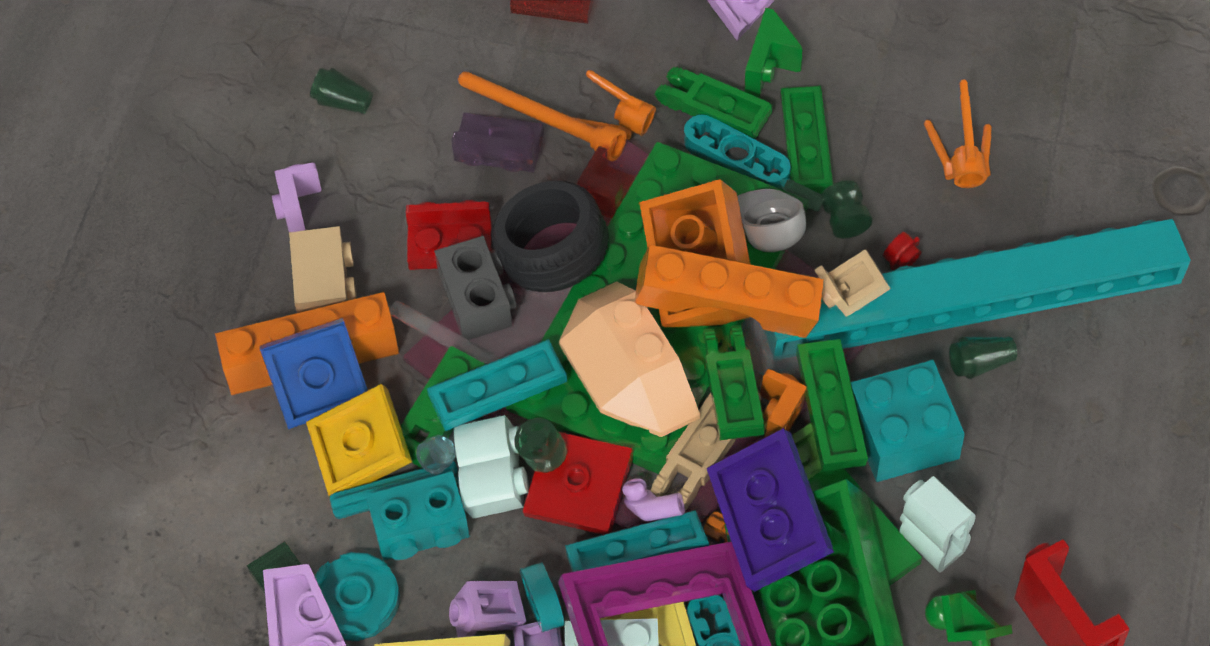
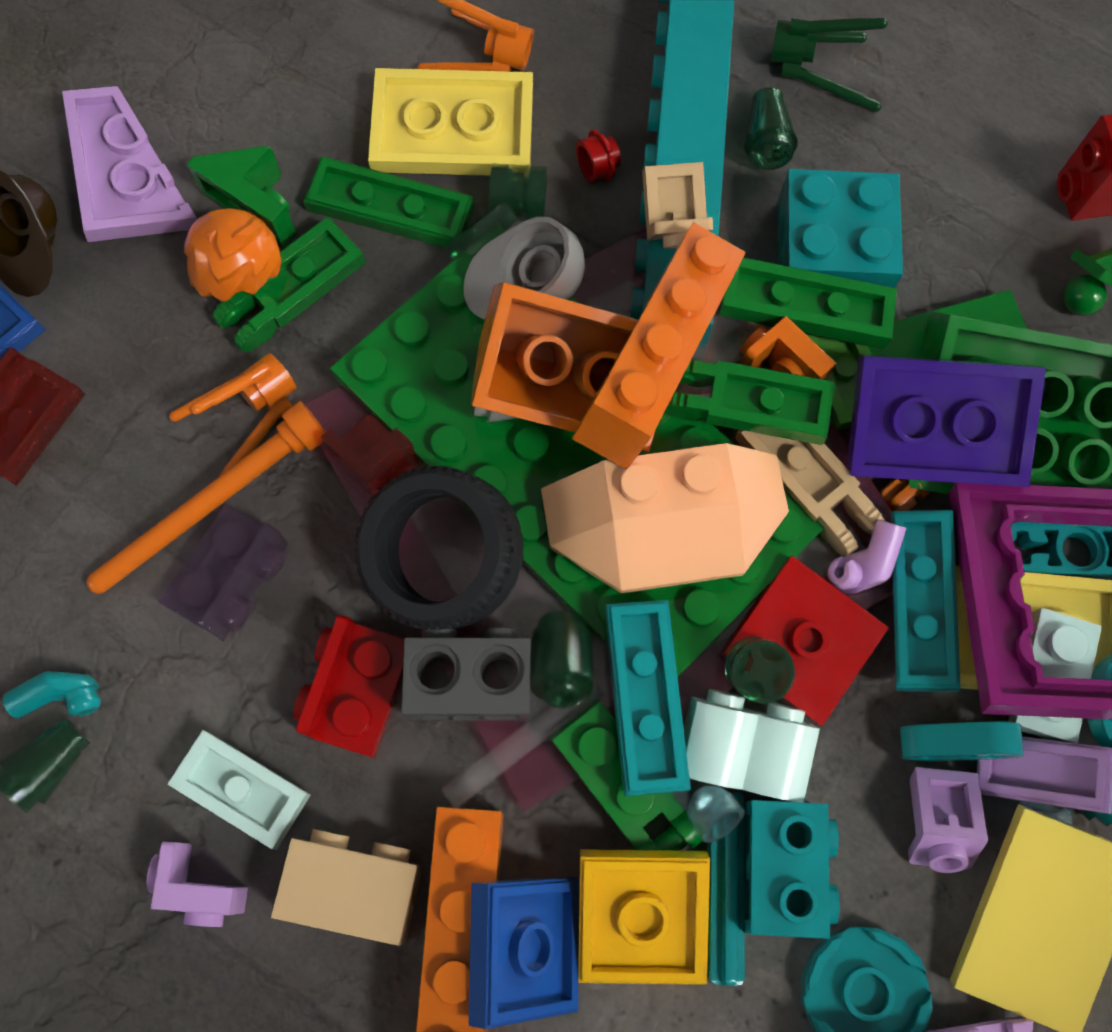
camera: 75 degrees left, 15 degrees up
(362, 198) = (239, 789): none -> light aqua plate
(393, 92) = (53, 686): none -> teal arm
(505, 332) = (562, 659): none -> clear green brick
(714, 57) = (230, 253): none -> orange hair
(727, 138) = (372, 309): teal beam -> none
(886, 153) = (450, 121): none -> light yellow plate
(936, 523) = (1003, 248): light aqua brick -> none
(1069, 355) = (797, 41): none -> dark green plant

